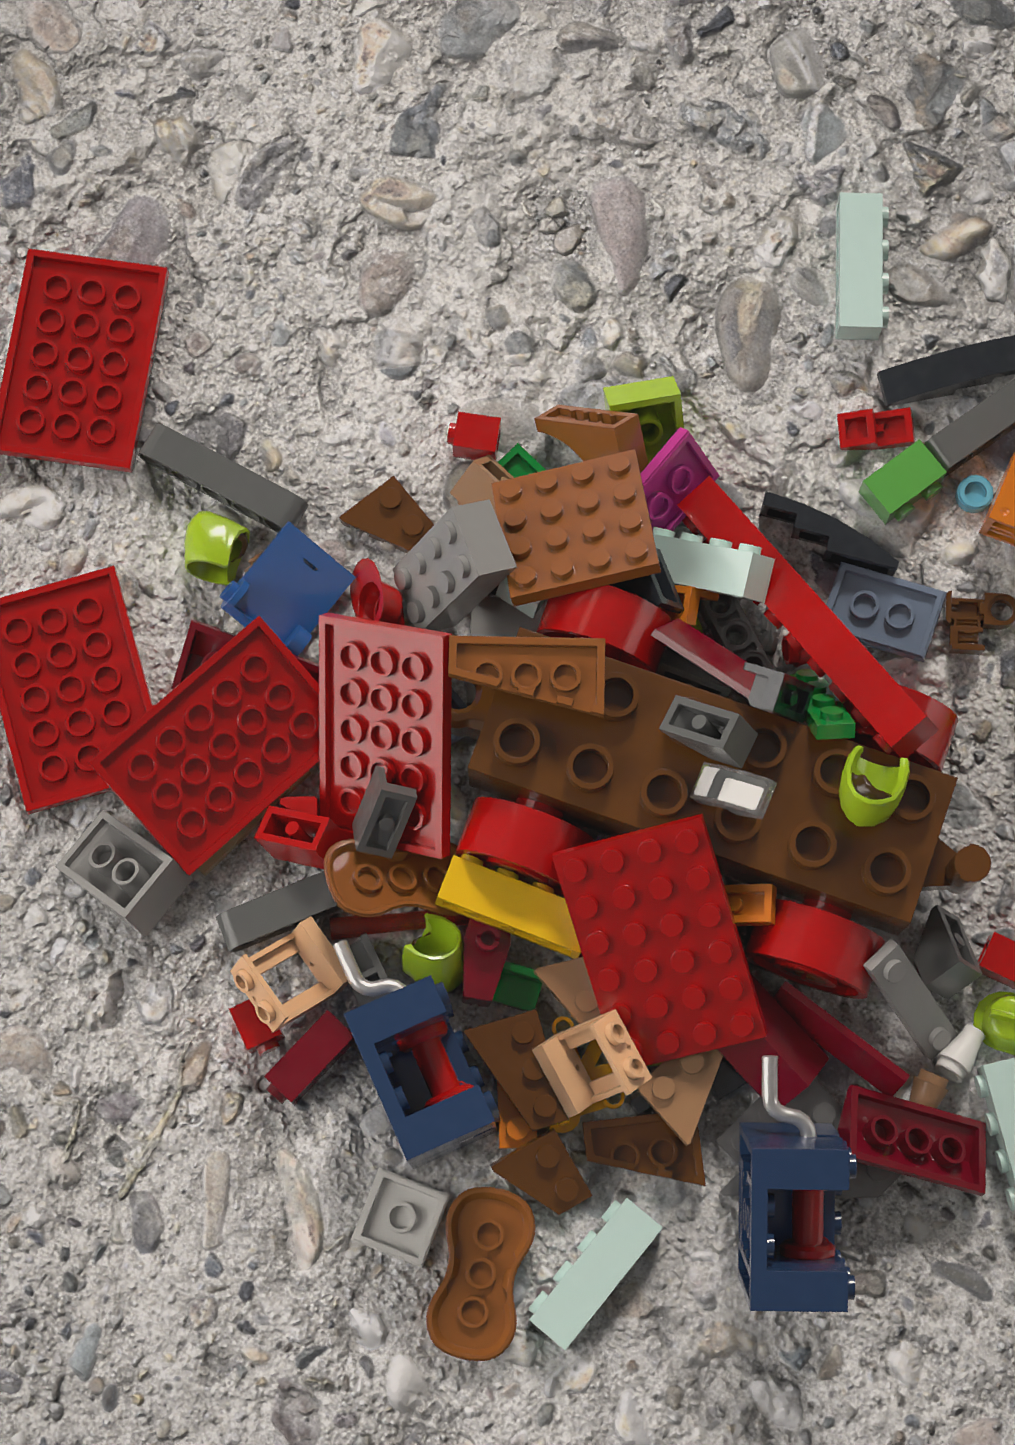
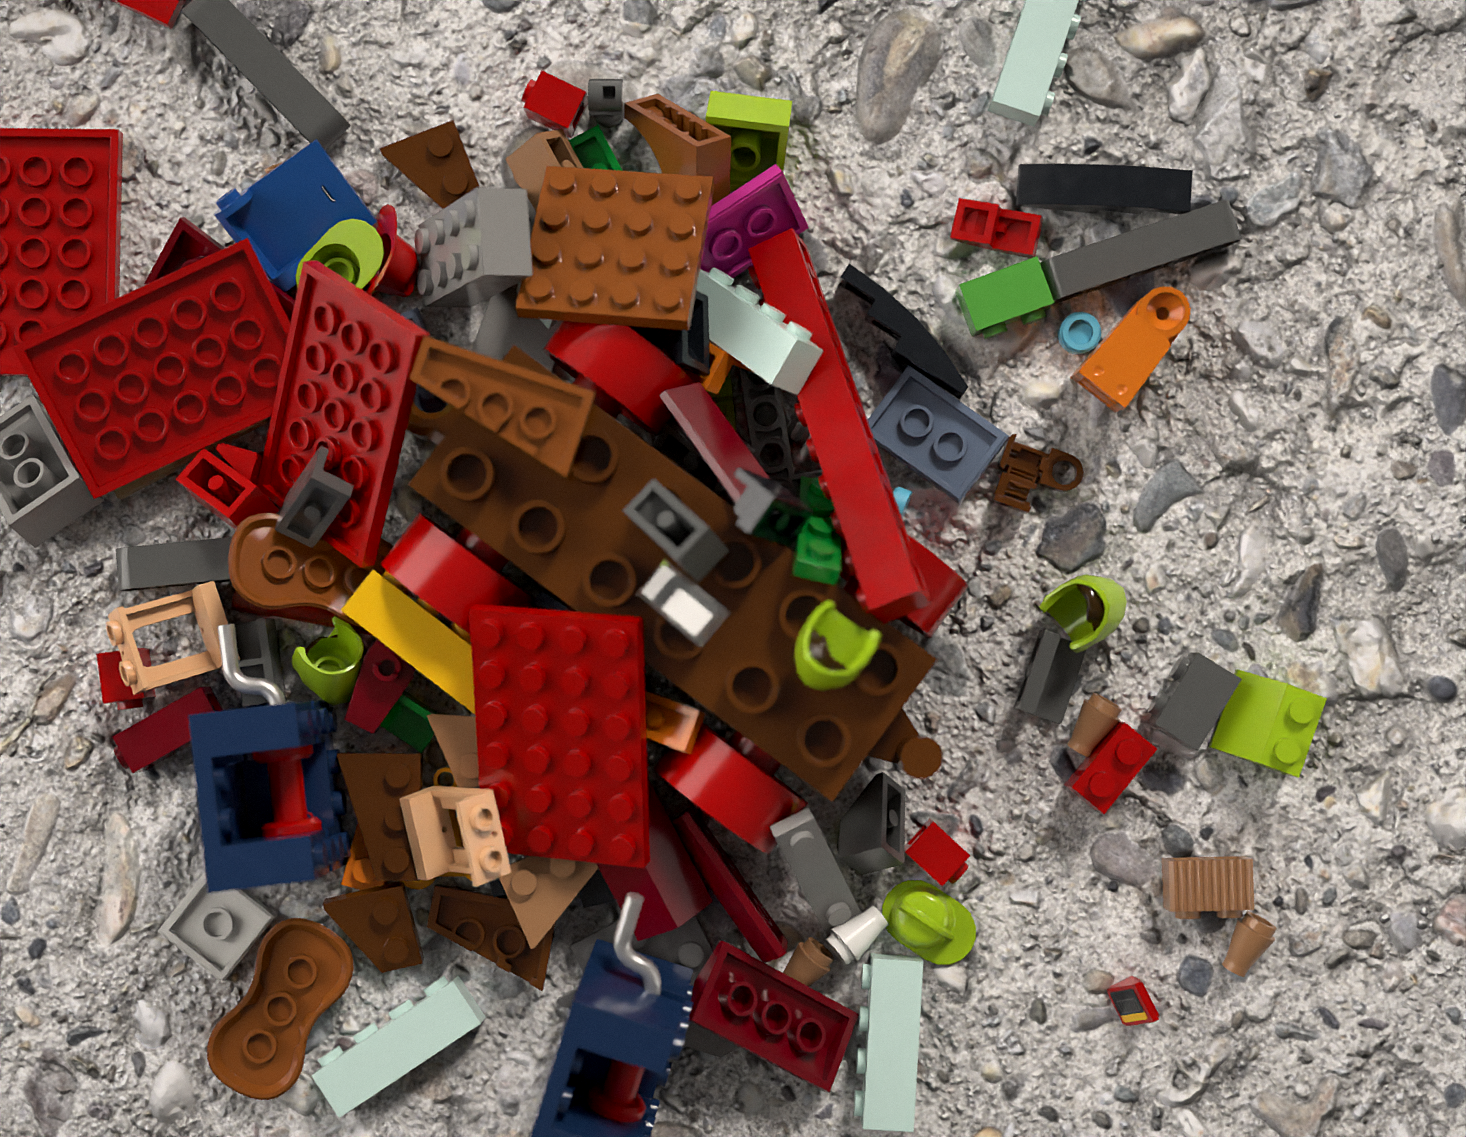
camera: 15 degrees right, 10 degrees up
(214, 547) = (232, 142): lime piece -> none
(341, 596) = (350, 250): none -> lime piece
(520, 421) = (606, 101): none -> dark grey leg

